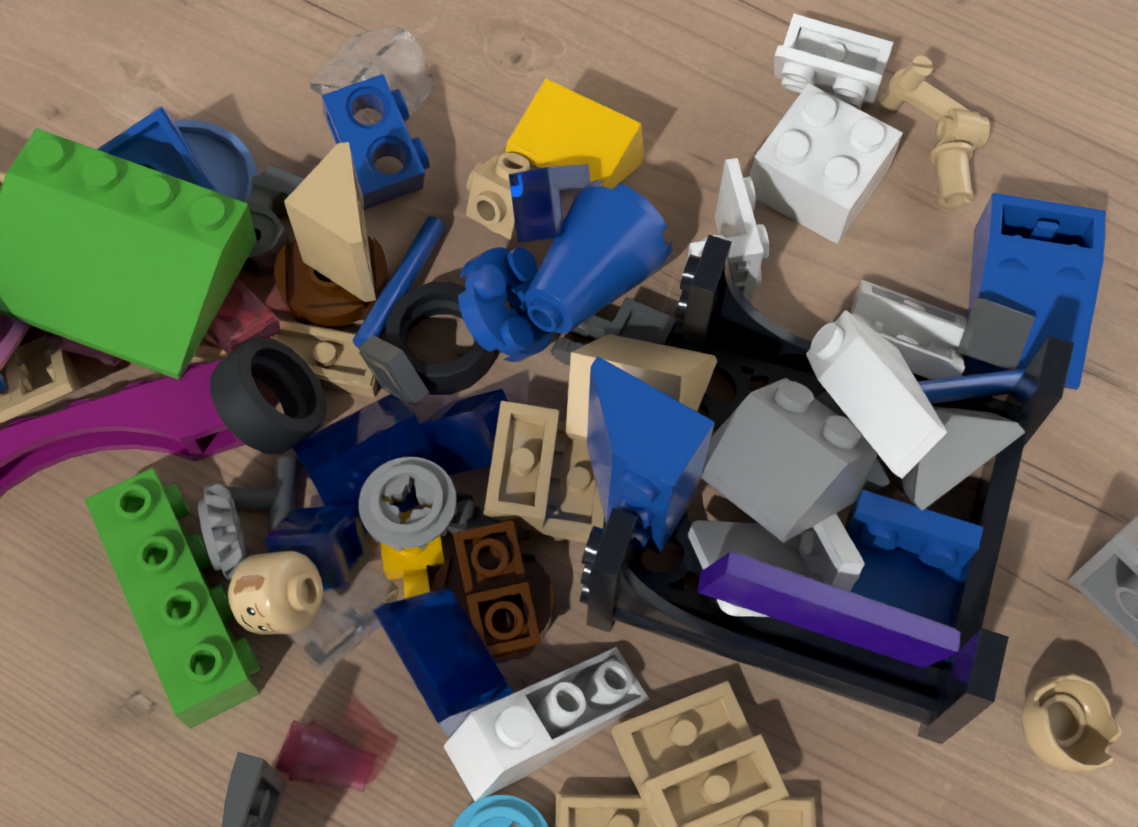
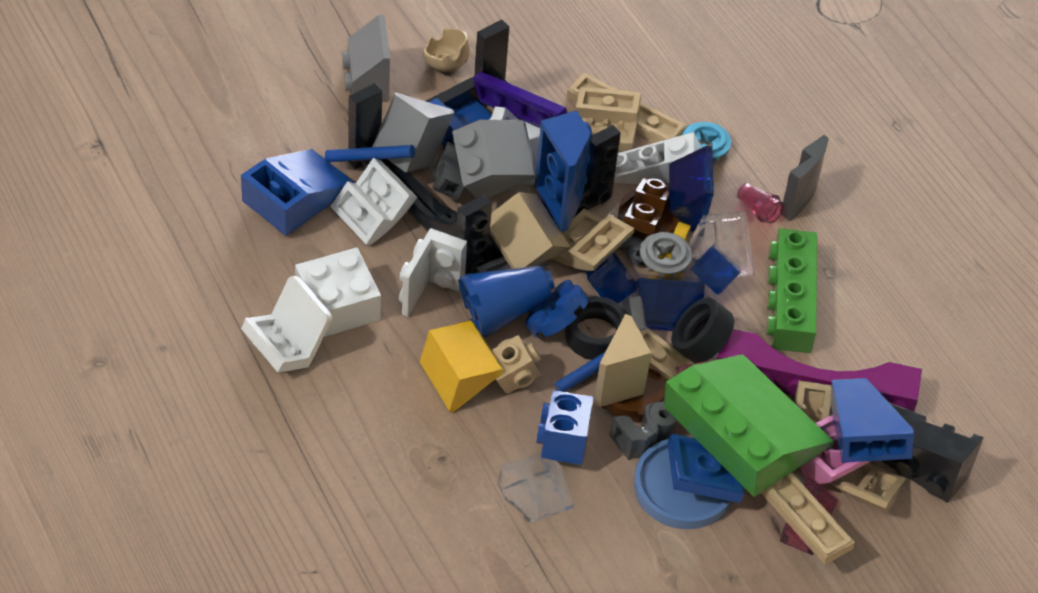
camera: 150 degrees left, 15 degrees down
(221, 529) = (757, 292): light grey gear -> none
(276, 499) = (728, 297): dark grey piece -> none
(276, 593) = (748, 249): tan head -> none
(538, 199) = (506, 321): clear blue panel -> none
(876, 391) = (435, 147): white slope -> none
(956, 129) = (249, 275): tan pin -> none
(995, 334) = (339, 171): dark grey tile -> none

